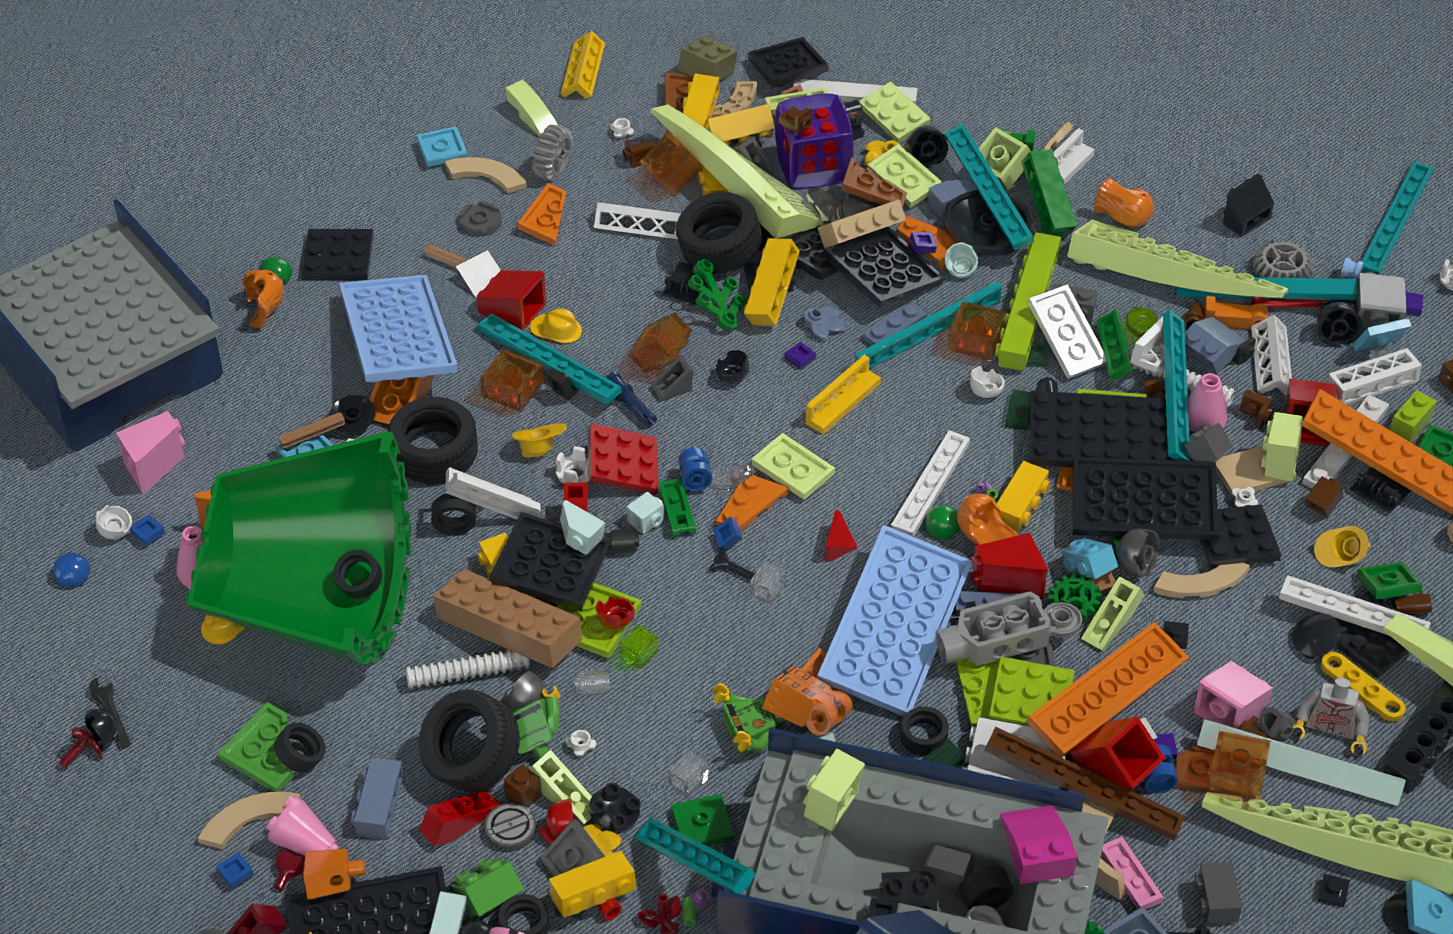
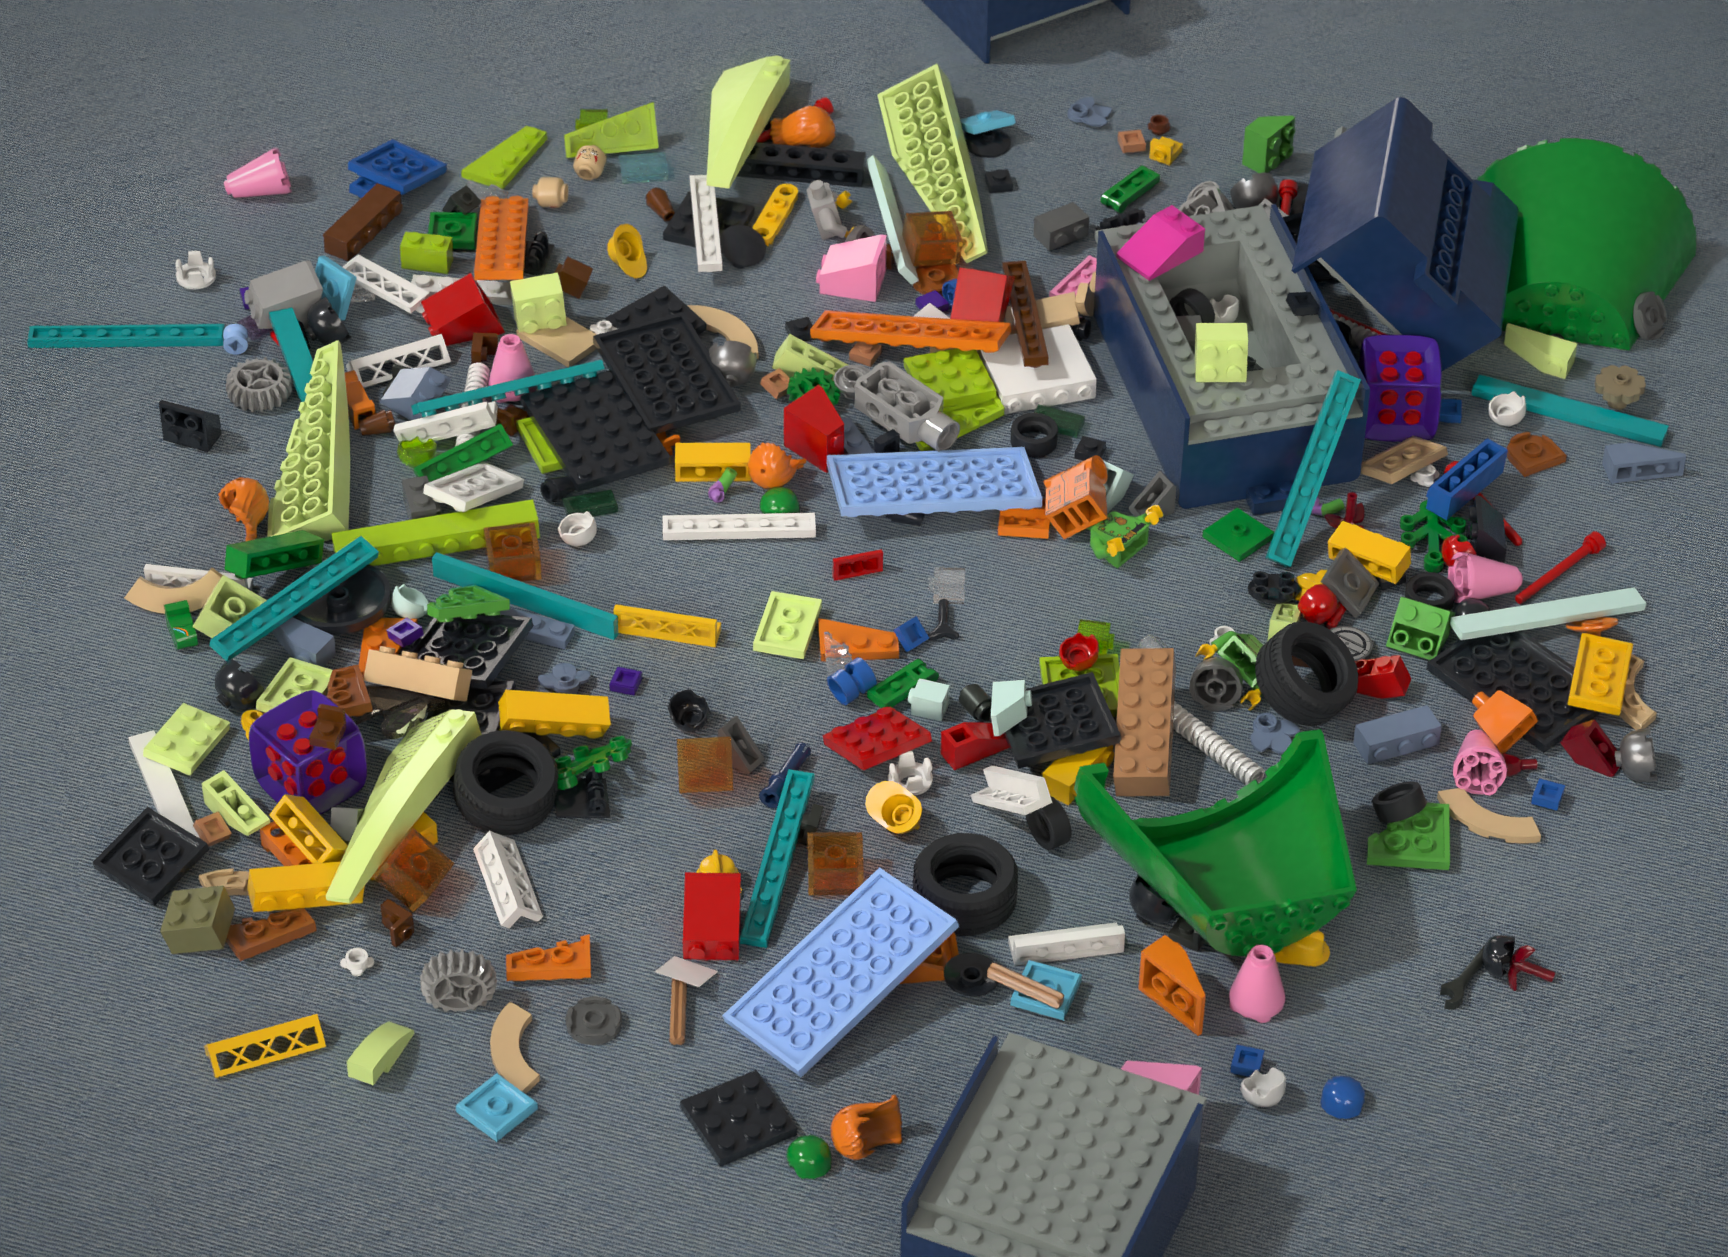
camera: 120 degrees left, 5 degrees down
(347, 561) = (1193, 833): black tyre -> none
(688, 773) = (1200, 554): clear brick -> none
(855, 115) = (231, 755): black leg -> none
(924, 276) = (467, 603): none -> bright green plate
(1089, 558) = (767, 386): medium azure brick -> none
(1208, 443) = (568, 351): dark grey brick -> none
(1389, 580) = (648, 218): green plate -> none

